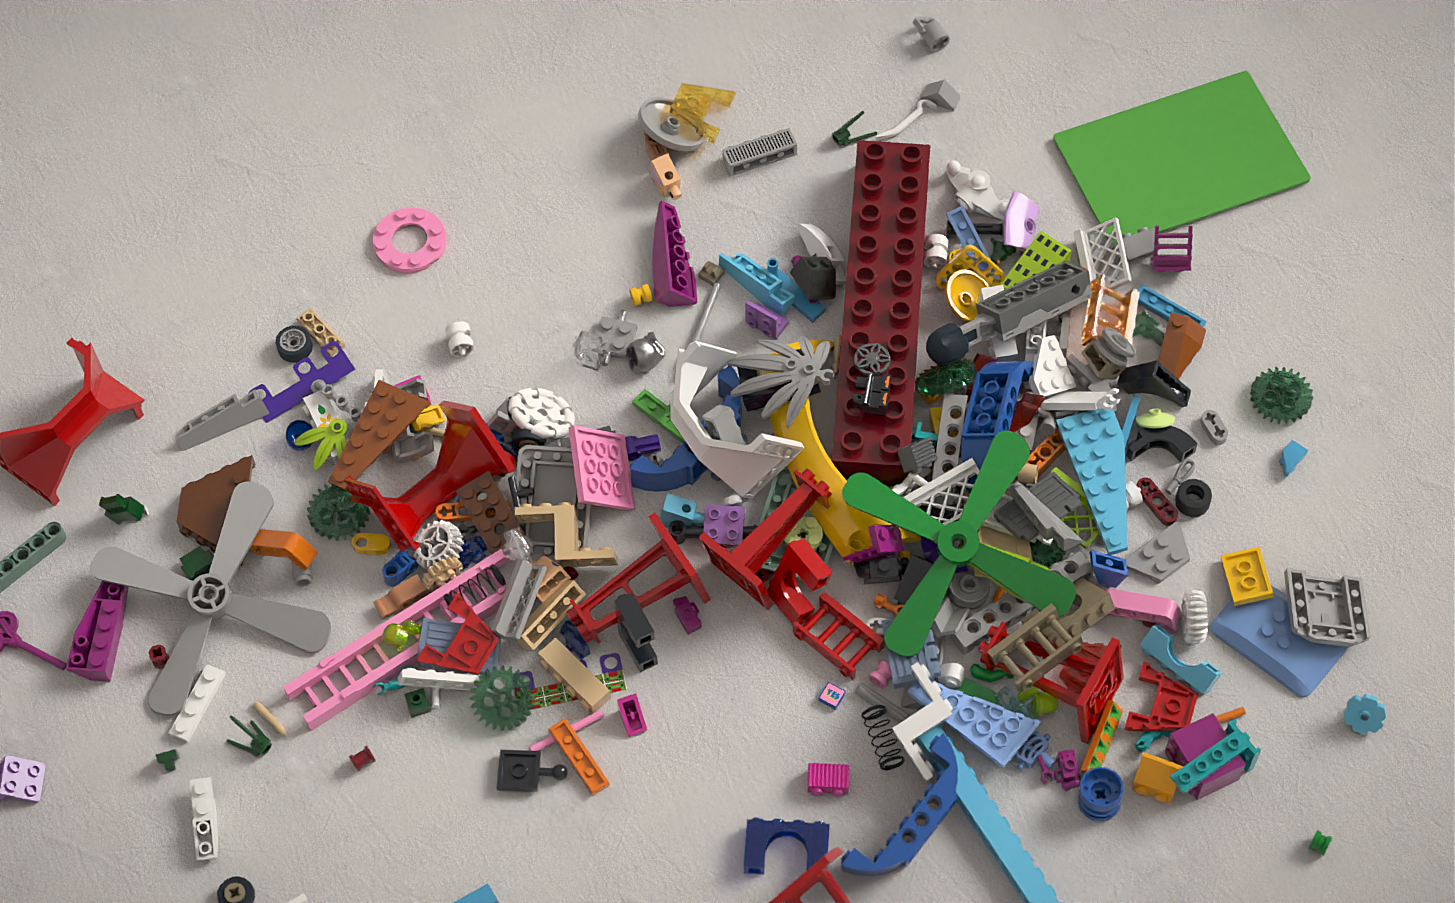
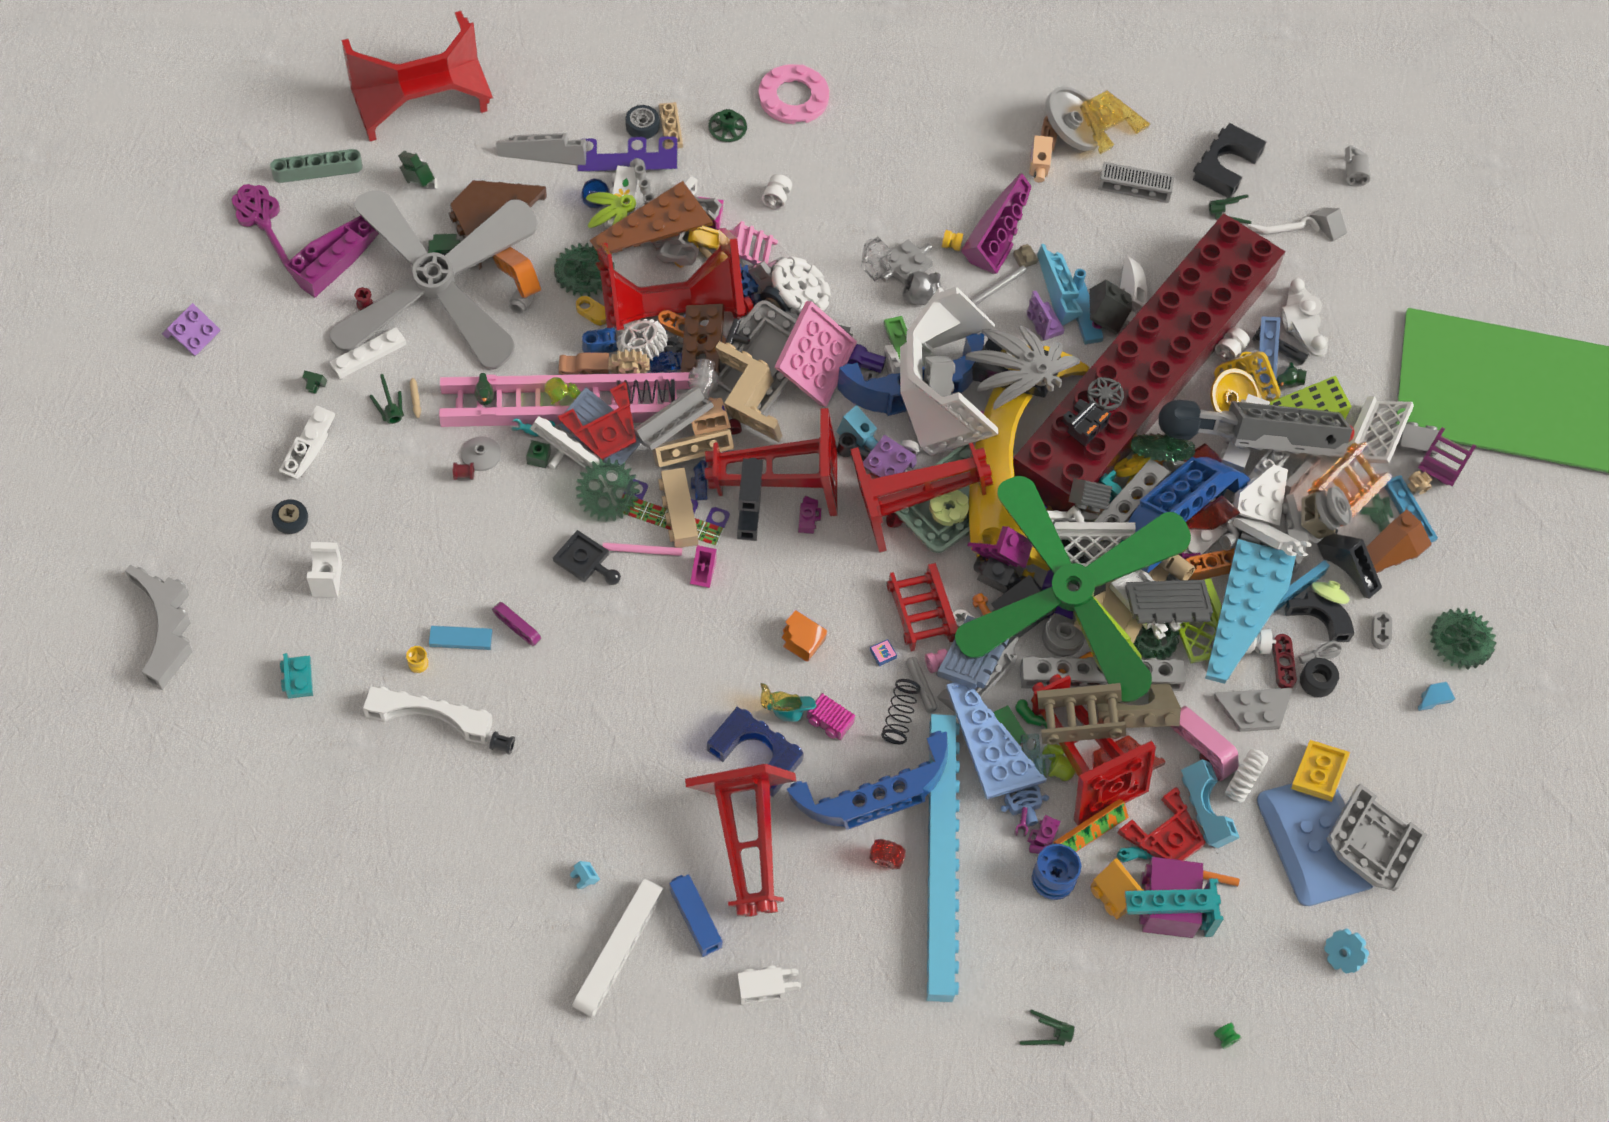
camera: 25 degrees right, 0 degrees up
(331, 675) = (483, 390): none -> dark green animal
(371, 300) = (728, 123): none -> dark green wheel
(372, 737) = (482, 460): none -> light grey dish
(461, 396) = (744, 236): none -> bright pink plate
(506, 865) = (516, 623): none -> magenta beam
(579, 756) = (637, 574): orange tile -> none
(667, 435) = (892, 360): none -> white wing
(756, 723) = (803, 636): none -> orange piece
(783, 588) = (920, 526): red arch -> none
(786, 792) = (784, 705): none -> hair
(818, 107) = (1230, 141): none -> black arch
(923, 720) = (939, 714): white bracket -> none
(928, 408) = (1129, 467): none -> yellow tile
(947, 619) = (1025, 646): light grey panel -> none
(951, 675) = (996, 696): white plate -> none
(956, 866) = (887, 854): none -> clear red gear
(1020, 222) = (1324, 360): lavender panel -> none
(1042, 518) = (1165, 611): light grey wedge -> none
(1108, 569) = (1197, 689): blue slope -> none
(1162, 282) = (1419, 482): none -> tan gear

